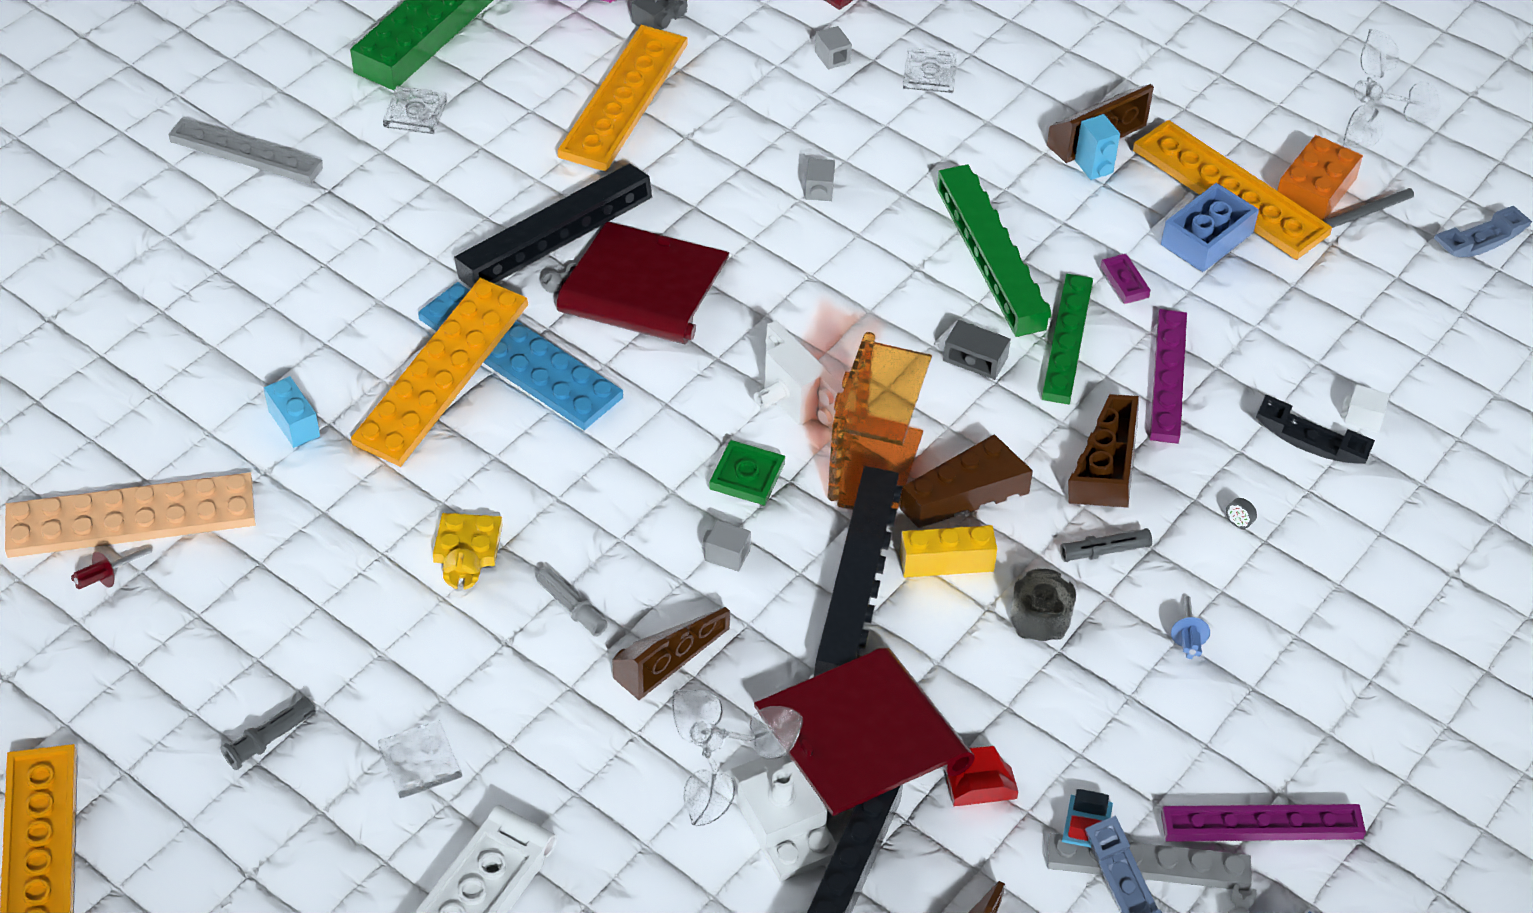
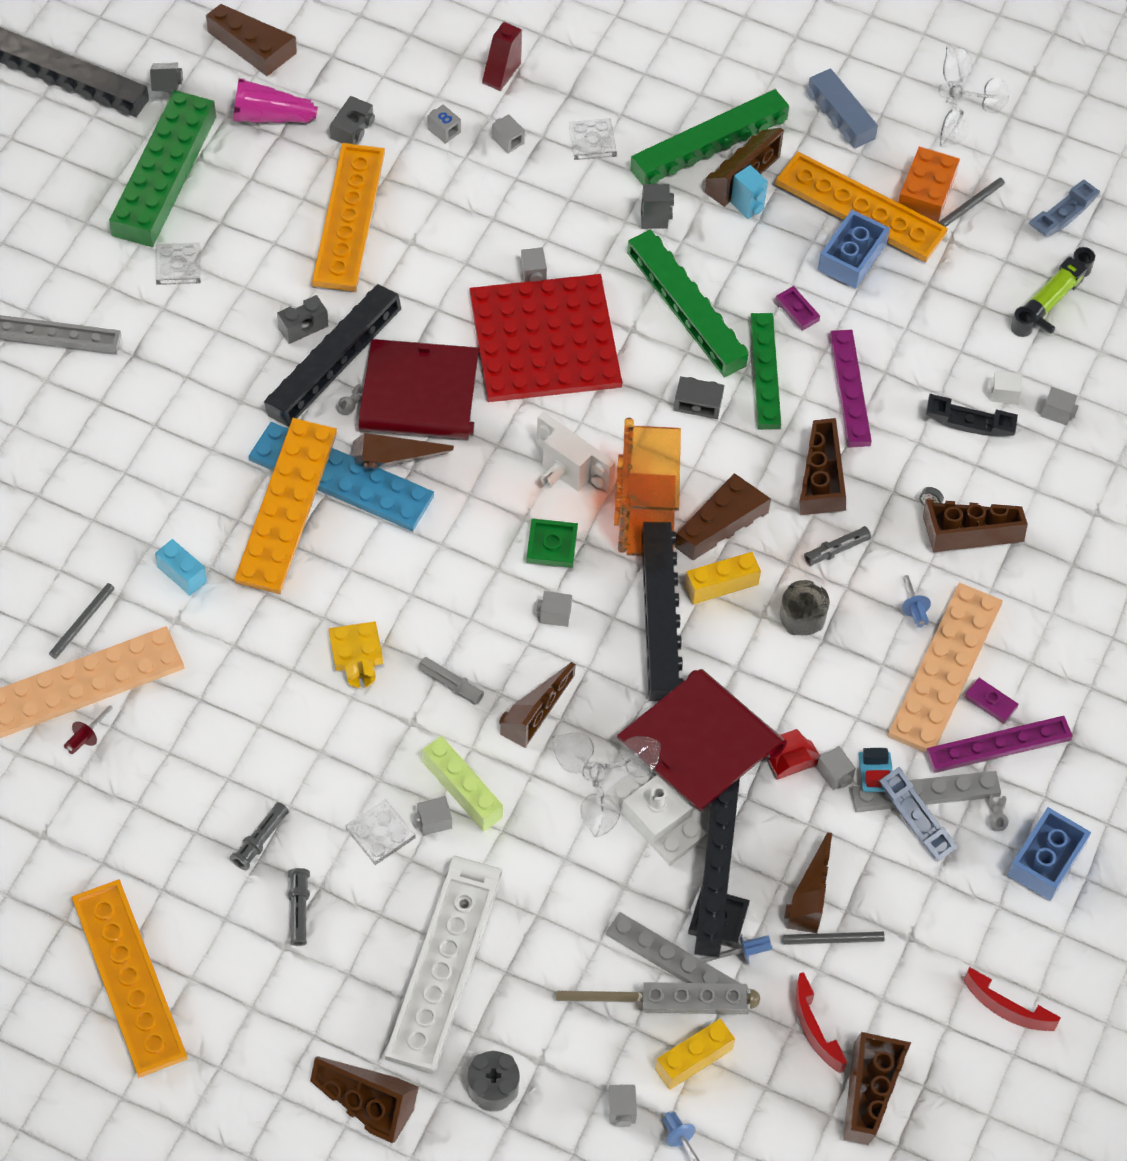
camera: 15 degrees left, 10 degrees up
(154, 449) = (81, 621): none -> dark grey bar
(288, 813) = (298, 895): none -> dark grey pin
(492, 753) = (433, 816): none -> light grey brick
(521, 181) = (290, 319): none -> dark grey brick
(542, 723) = (462, 783): none -> yellowish green brick
(579, 332) = (382, 450): none -> reddish brown wedge
(763, 26) = (444, 123): none -> light grey brick
(810, 257) = (545, 338): none -> red plate
(981, 142) = (656, 206): none -> dark grey brick
(1034, 806) = (836, 768): none -> light grey brick
(1063, 89) = (709, 137): none -> green brick
(1211, 717) = (945, 668): none -> light nougat plate
(1233, 87) = (842, 108): none -> sand blue brick
(1265, 767) = (991, 700): none -> magenta plate
(1288, 553) = (972, 525): none -> reddish brown wedge
(1431, 441) = (1060, 406): none -> light grey brick
(1474, 304) = (1069, 277): none -> black piece

